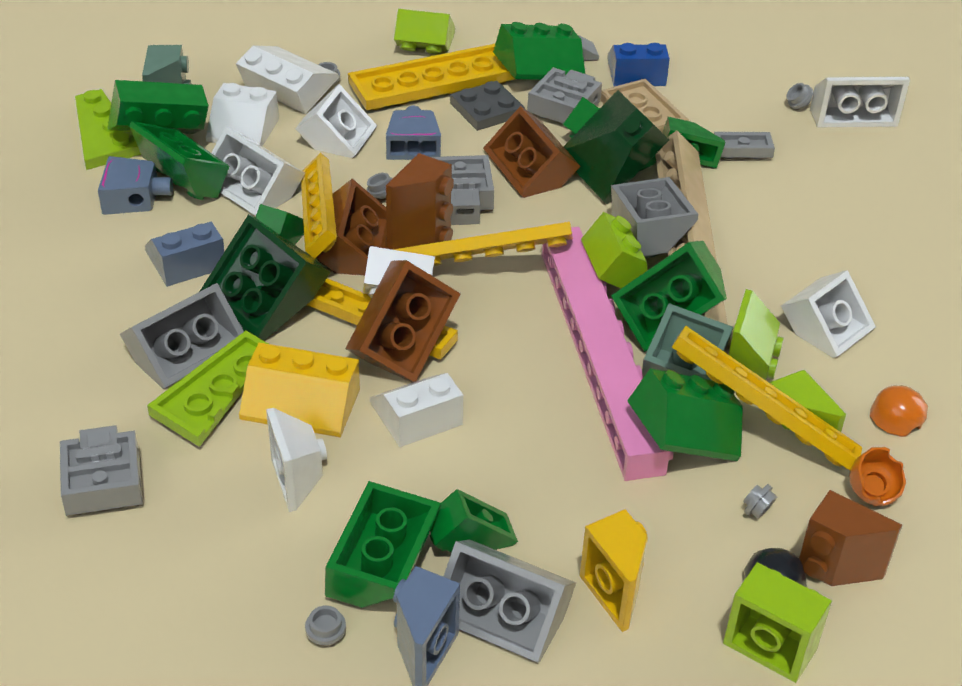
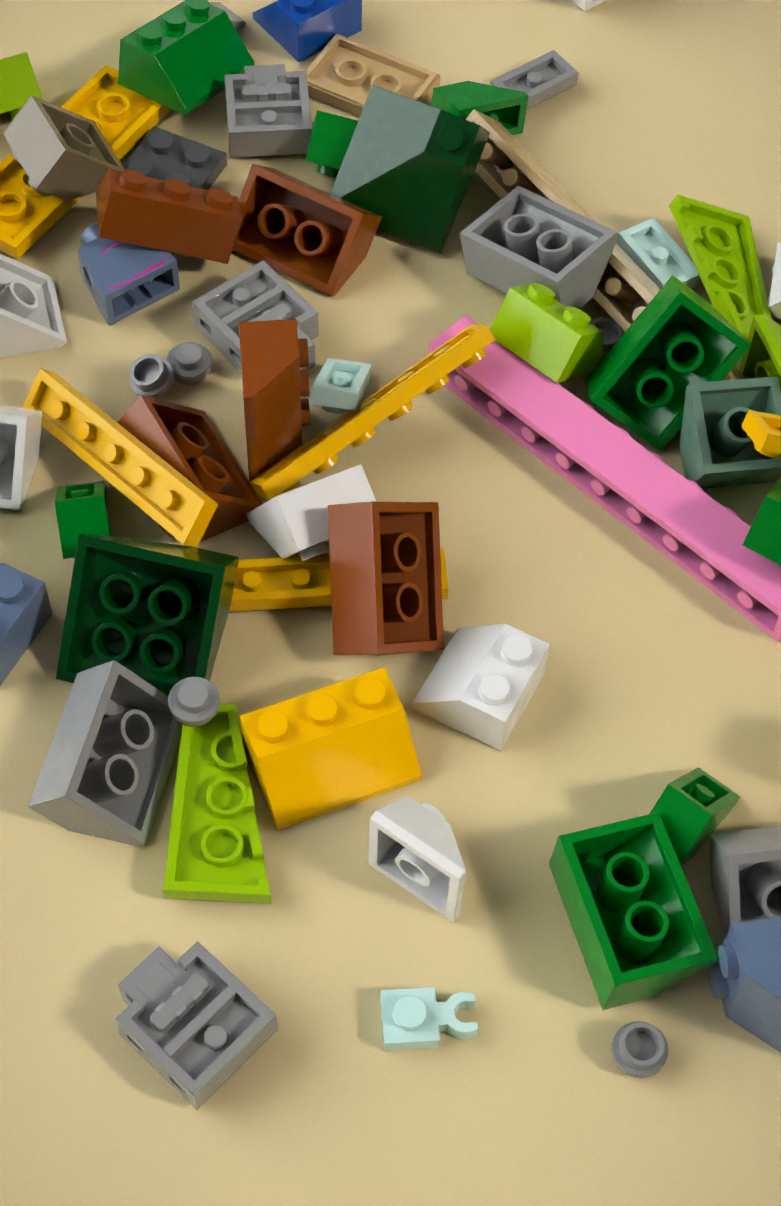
camera: 35 degrees left, 15 degrees up
(221, 539) = (415, 1018): none -> light aqua plate
(246, 329) = (194, 701): none -> light grey plate
(428, 65) = (59, 150): none -> dark tan slope
(452, 111) = (167, 215): none -> dark orange slope
(471, 227) = (340, 385): none -> light aqua plate
(737, 257) = (658, 254): none -> light aqua plate
(778, 269) = (725, 259): none -> lime wing

